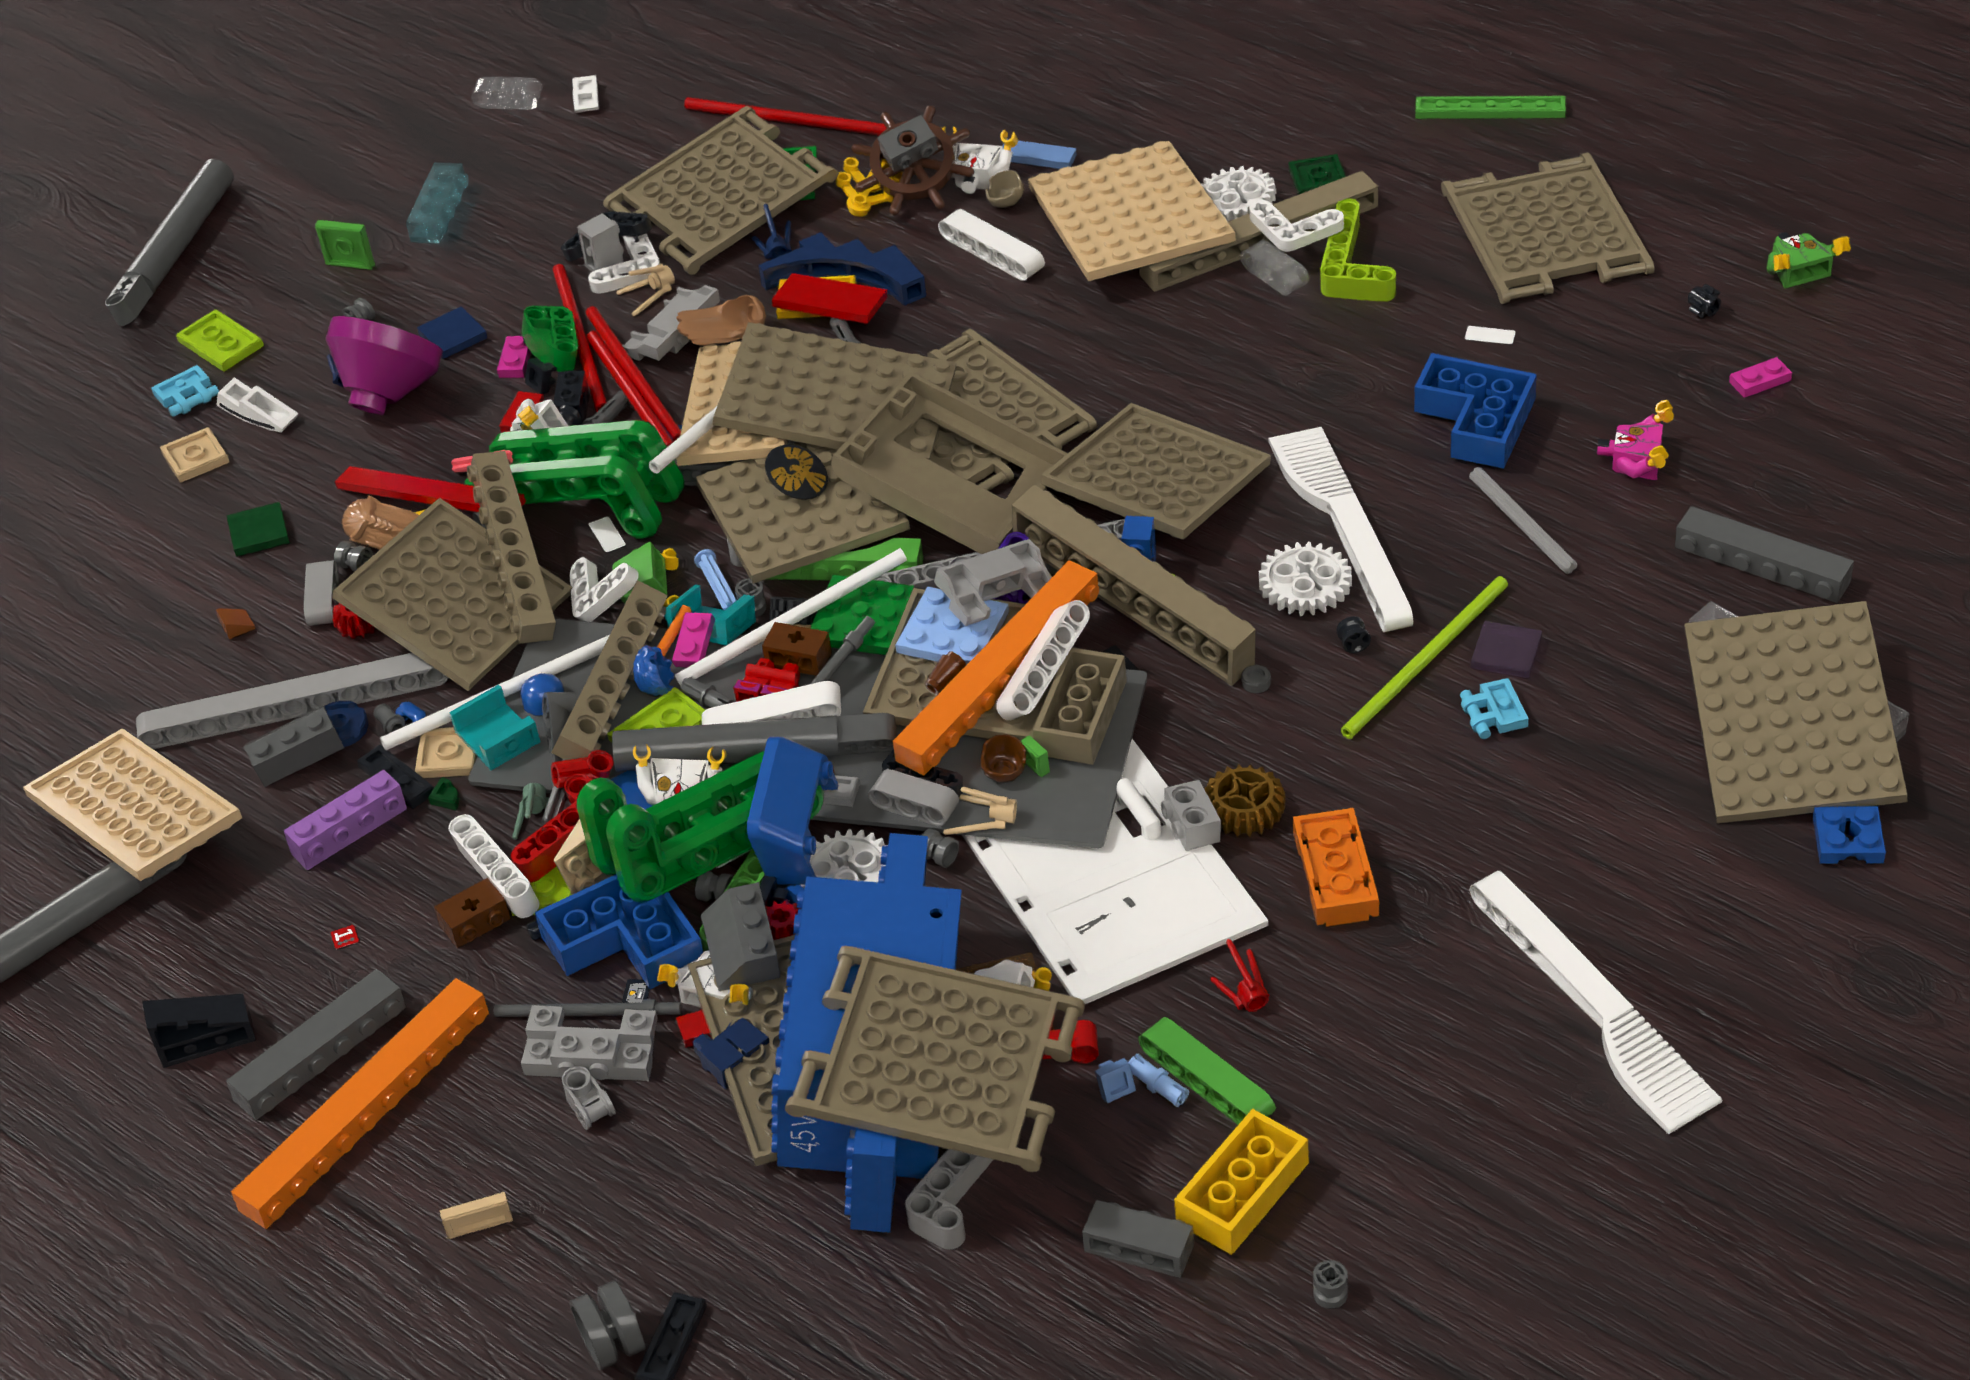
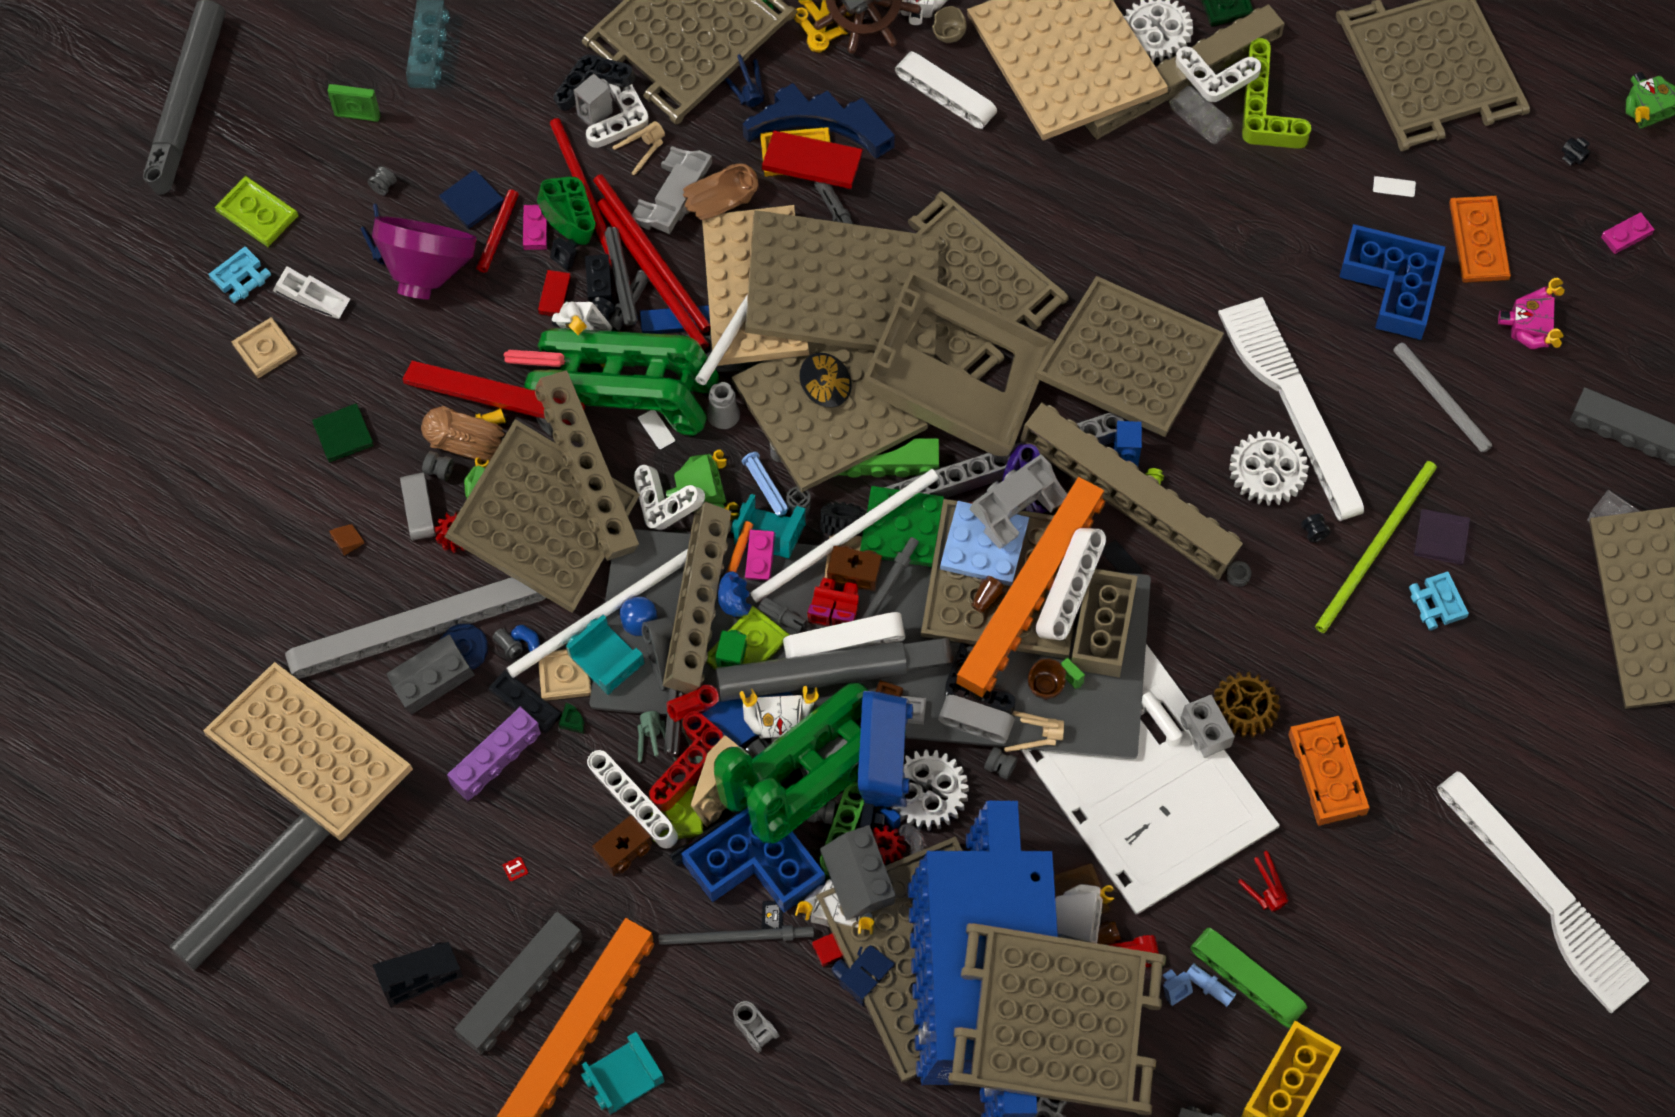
camera: 10 degrees left, 20 degrees up
(419, 1145) = (623, 1075): none -> teal panel
(472, 359) = (497, 231): none -> red piece
(595, 388) = (621, 276): none -> dark grey axle
(603, 1052) = (746, 980): light grey bracket -> none
(638, 715) = (731, 648): none -> green brick
(682, 506) = (722, 409): none -> light grey plant
(1584, 380) = (1479, 239): none -> orange tile

